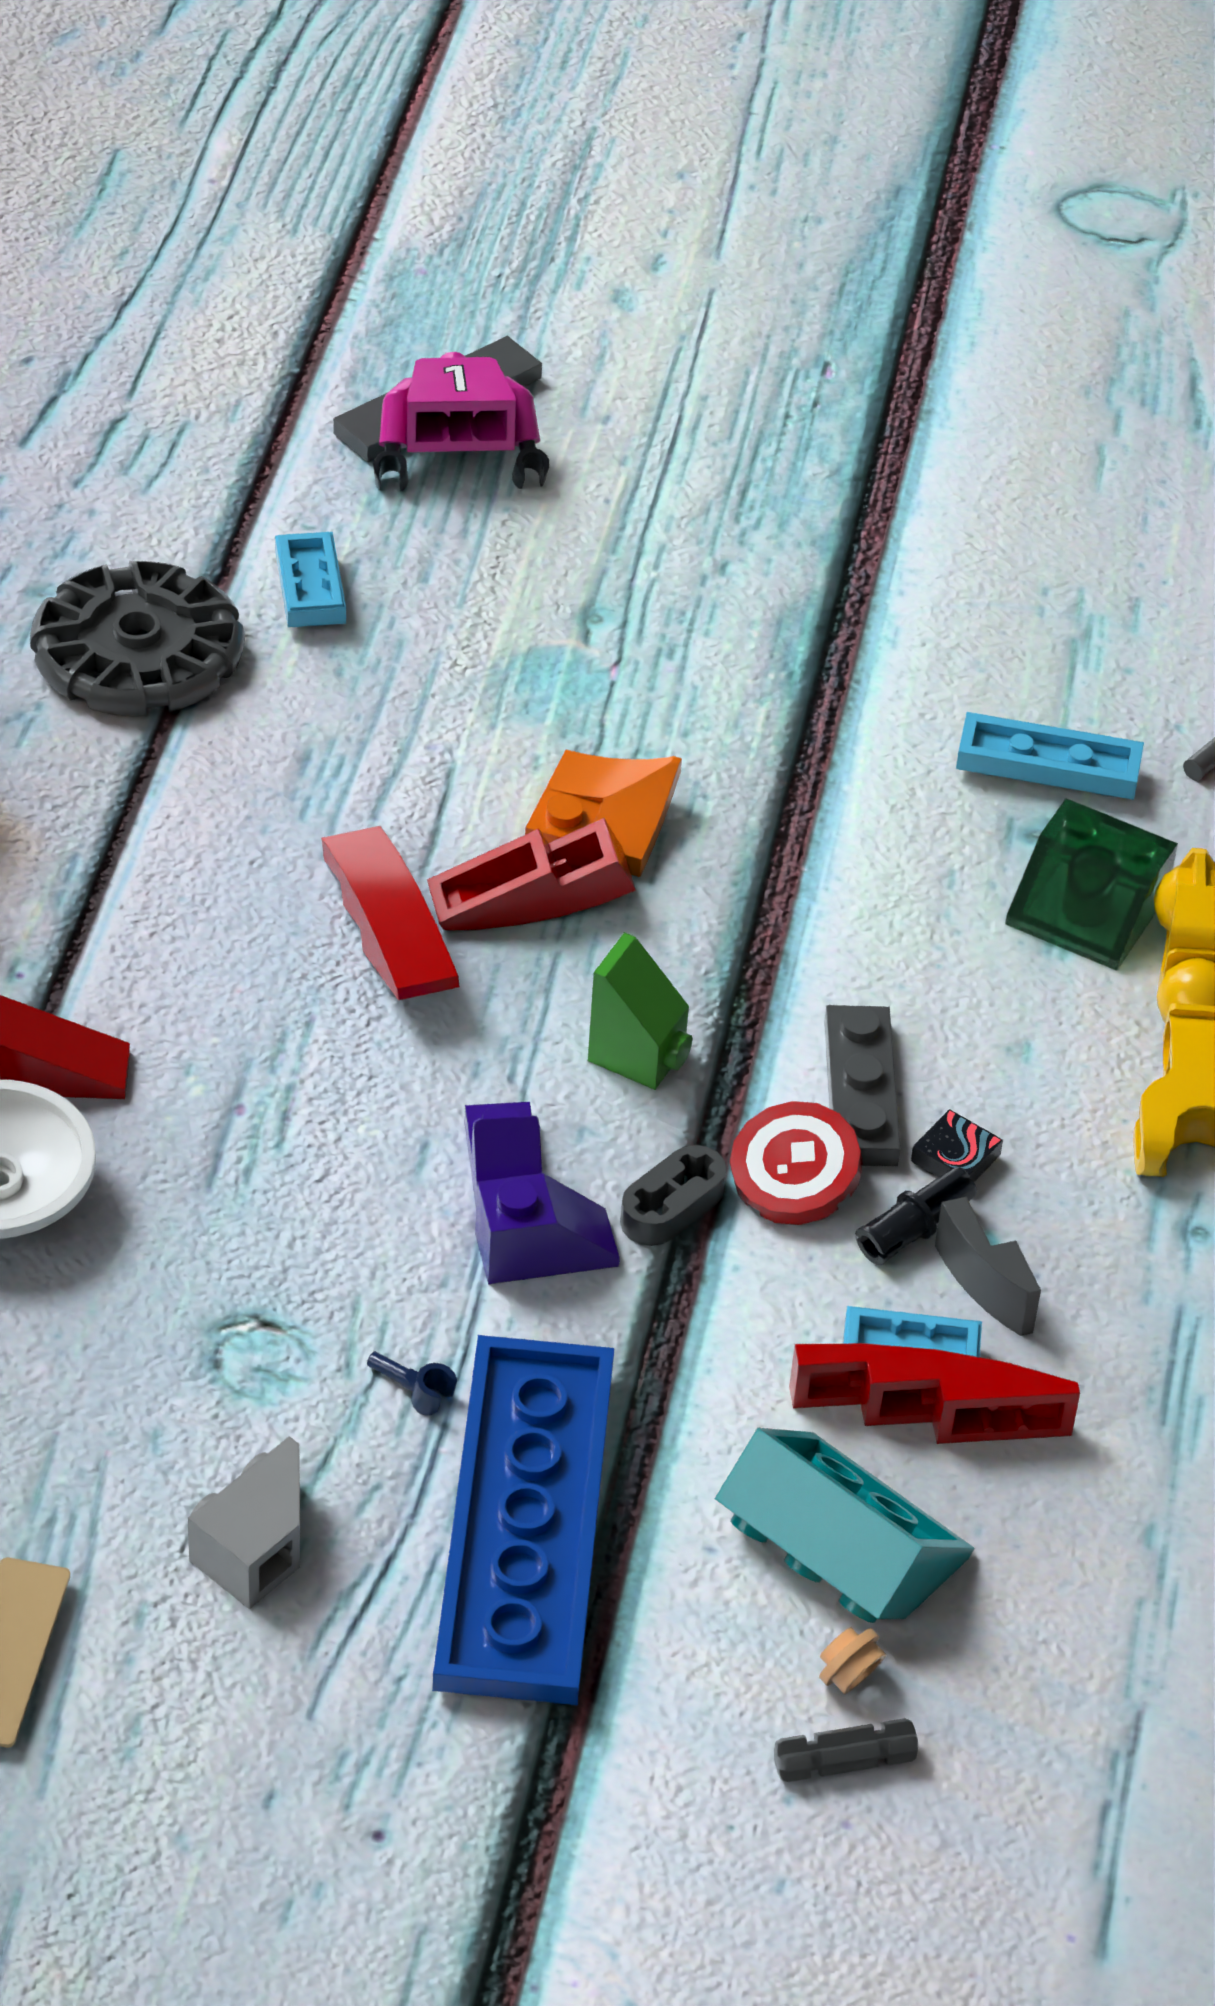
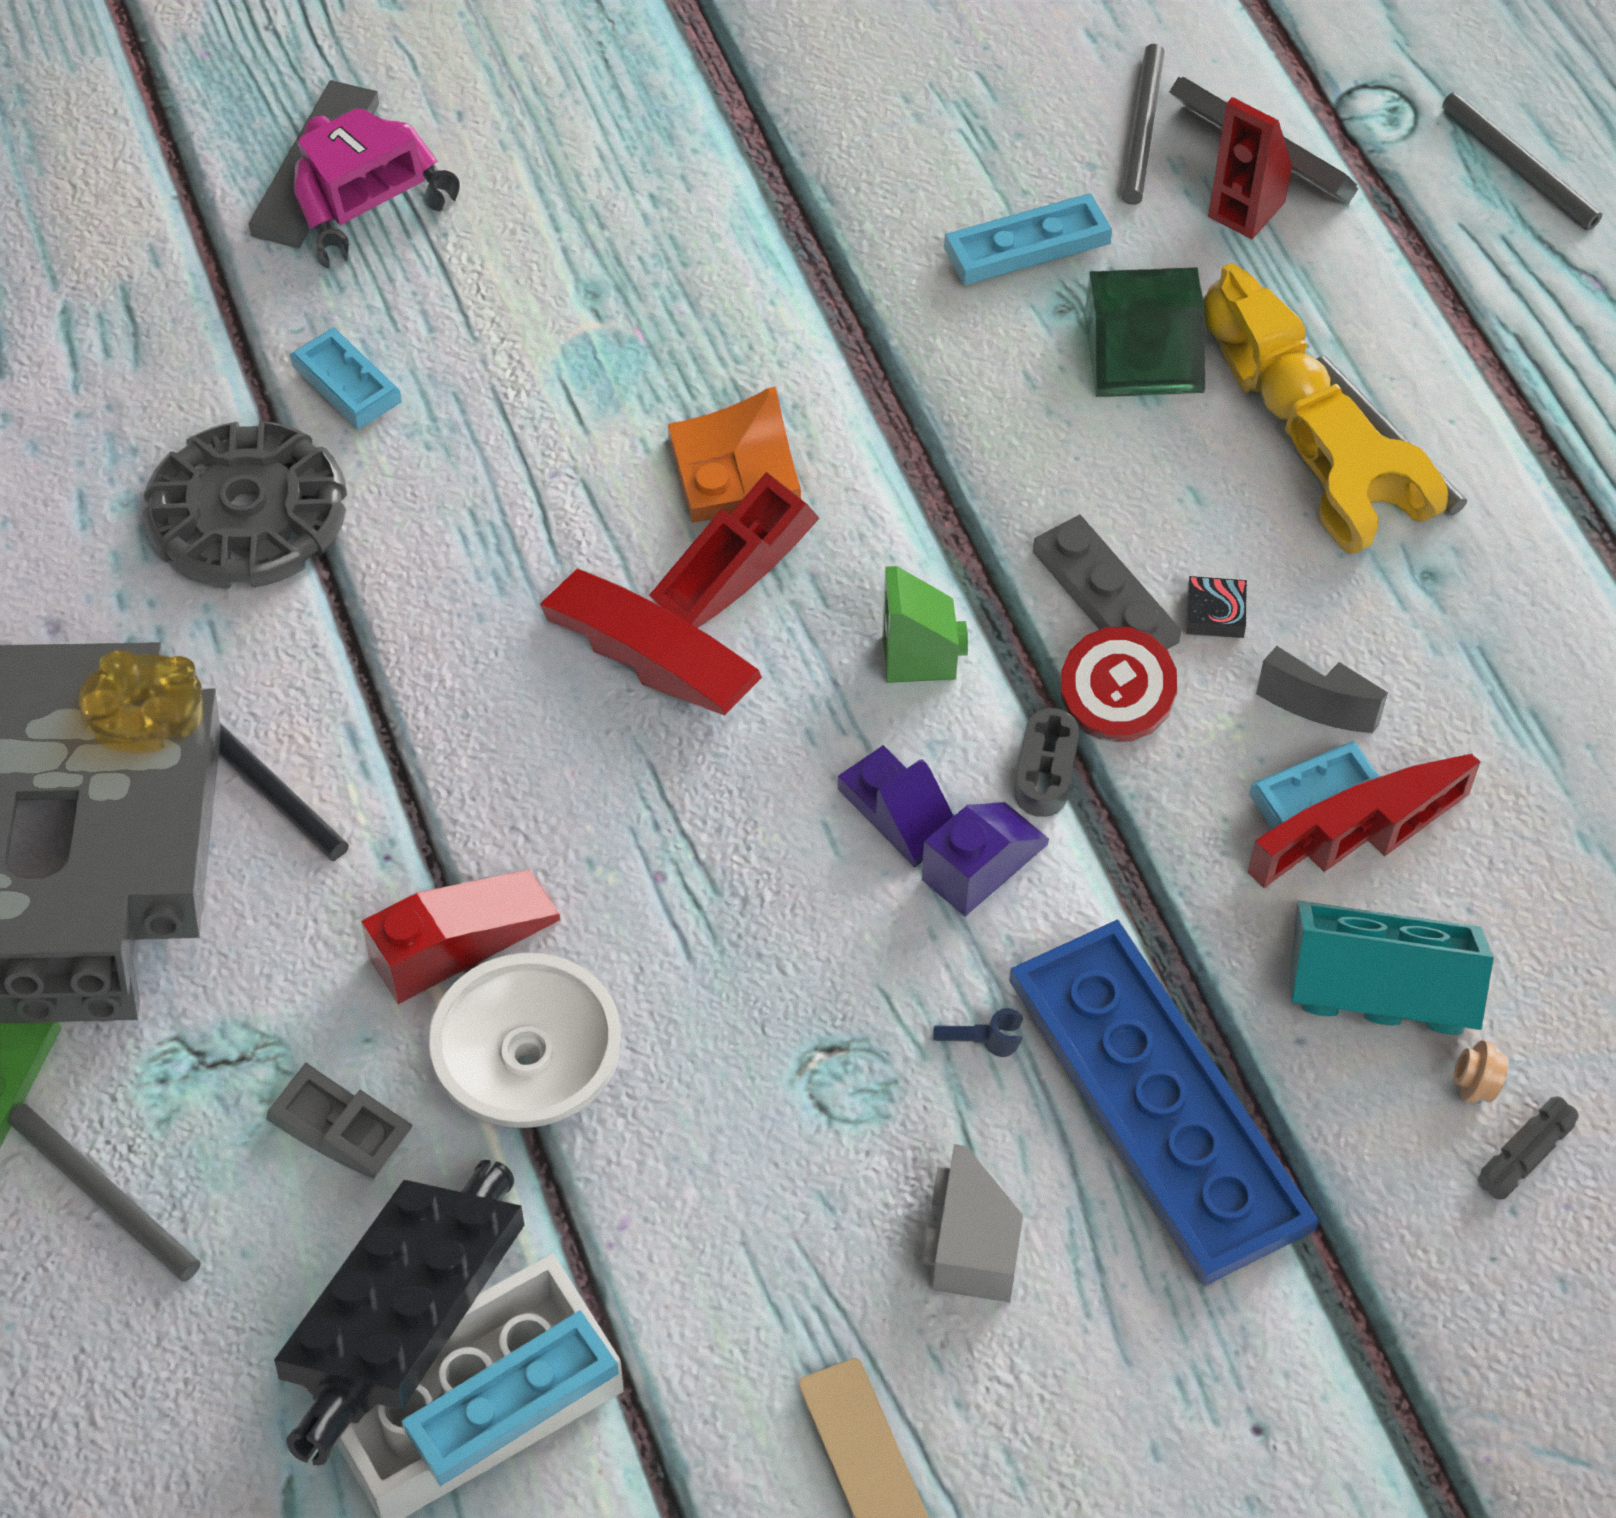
camera: 30 degrees left, 10 degrees up
(912, 1216) = (1235, 679): black axle -> none

